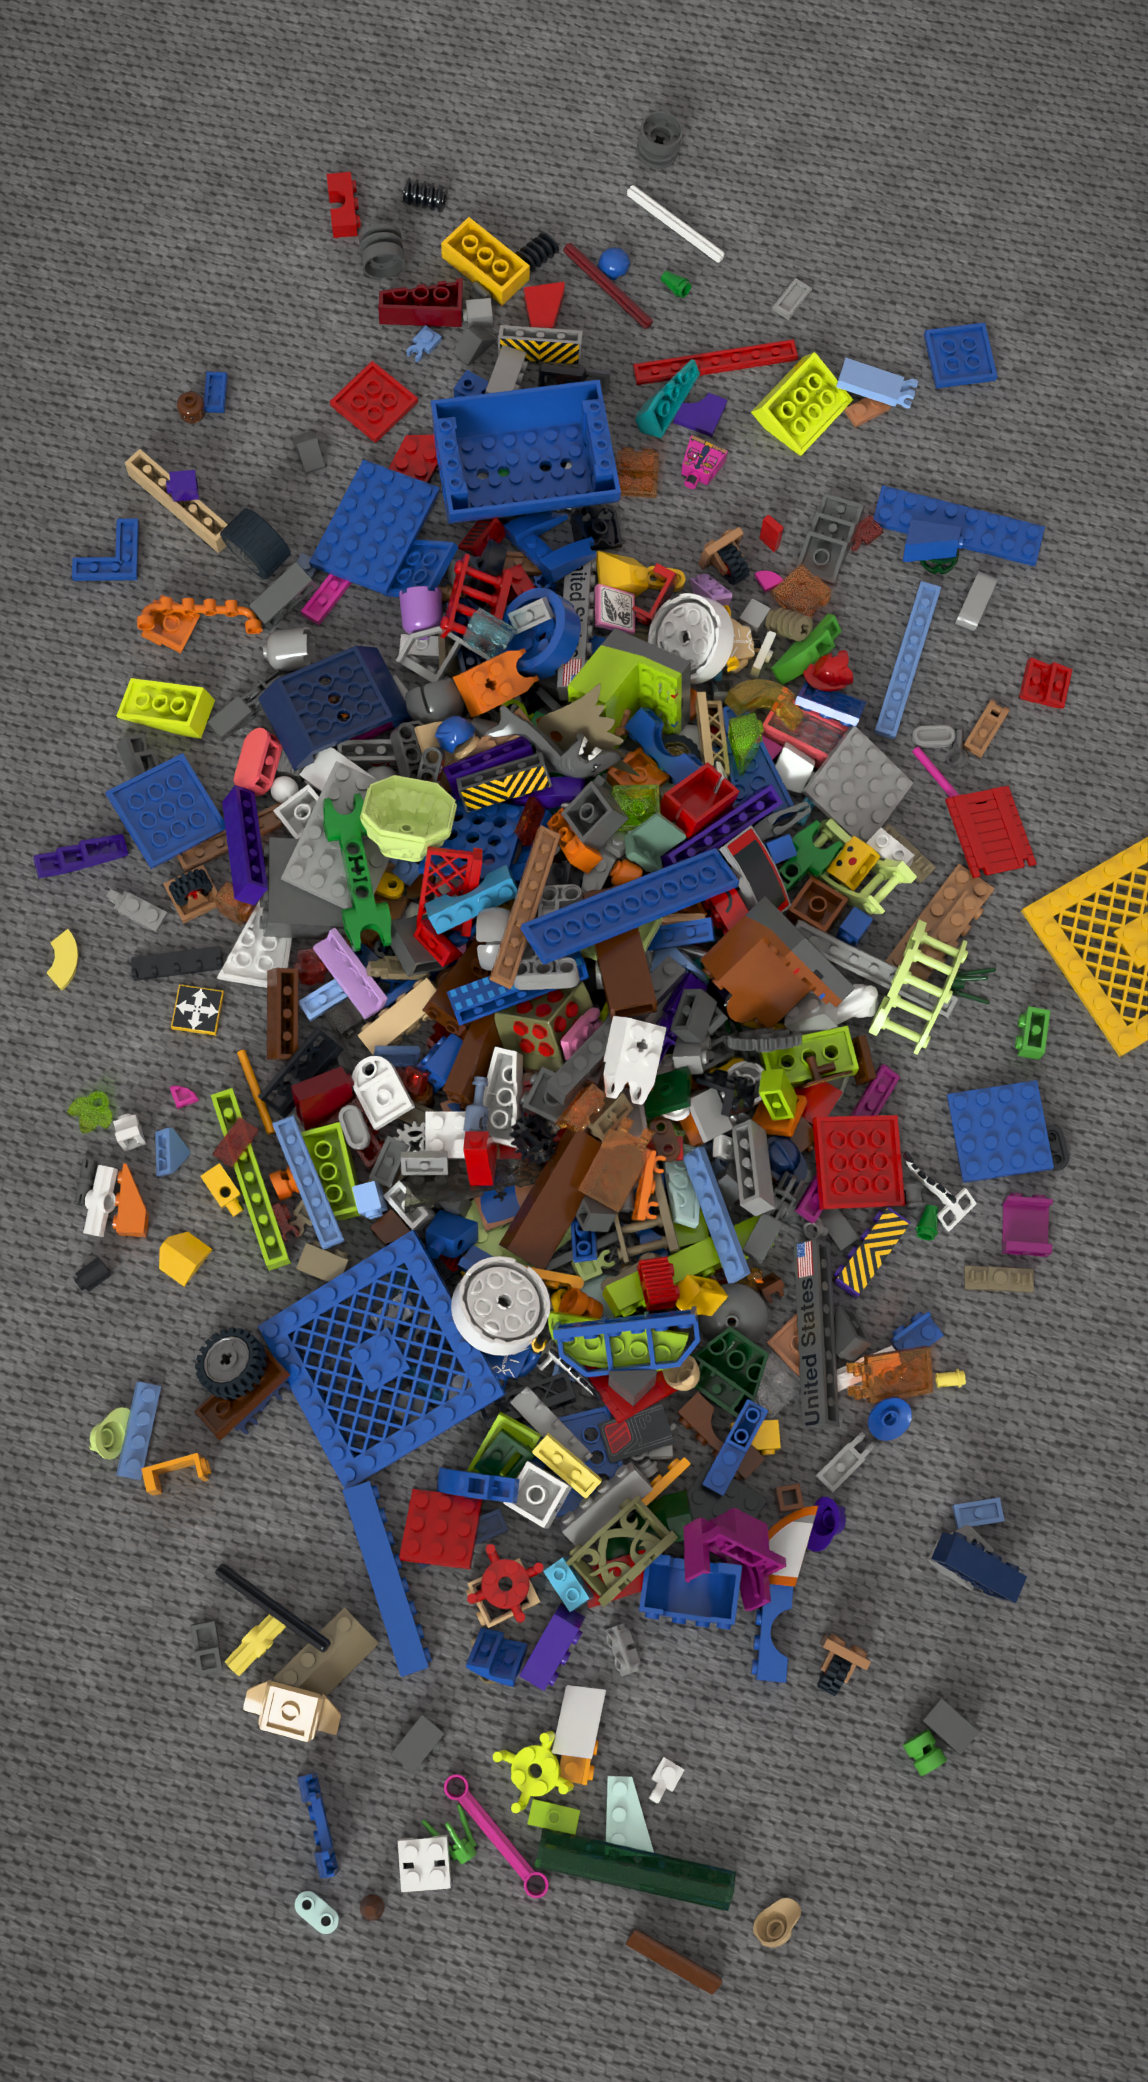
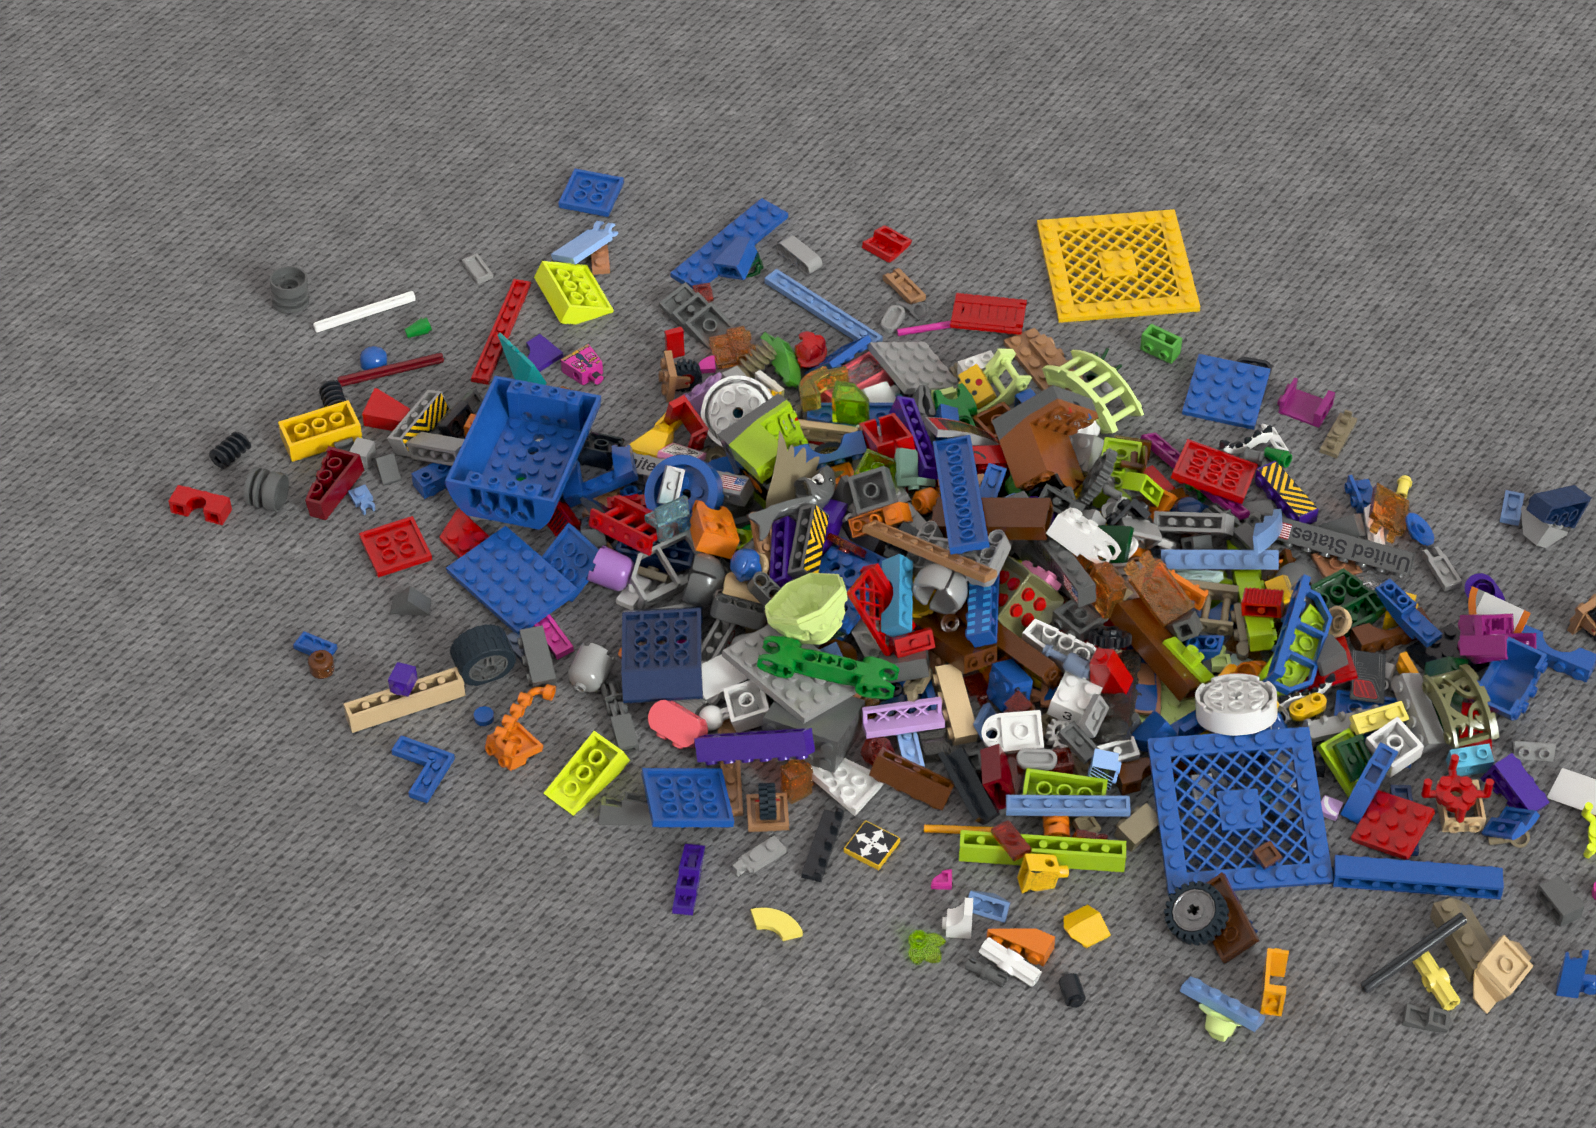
camera: 60 degrees left, 25 degrees down
(200, 581) = (483, 716): none -> blue tile
(335, 1409) = (1267, 855): none -> reddish brown plate
(445, 1453) = (1331, 807): none -> lavender tile
(553, 1234) = (1189, 658): none -> lime piece
(558, 1382) = (1310, 704): none -> yellow plate
(766, 1251) = (1267, 532): none -> medium blue slope
(767, 1059) = (1109, 489): none -> light grey arm
(788, 1498) = (1456, 605): reddish brown brick -> none

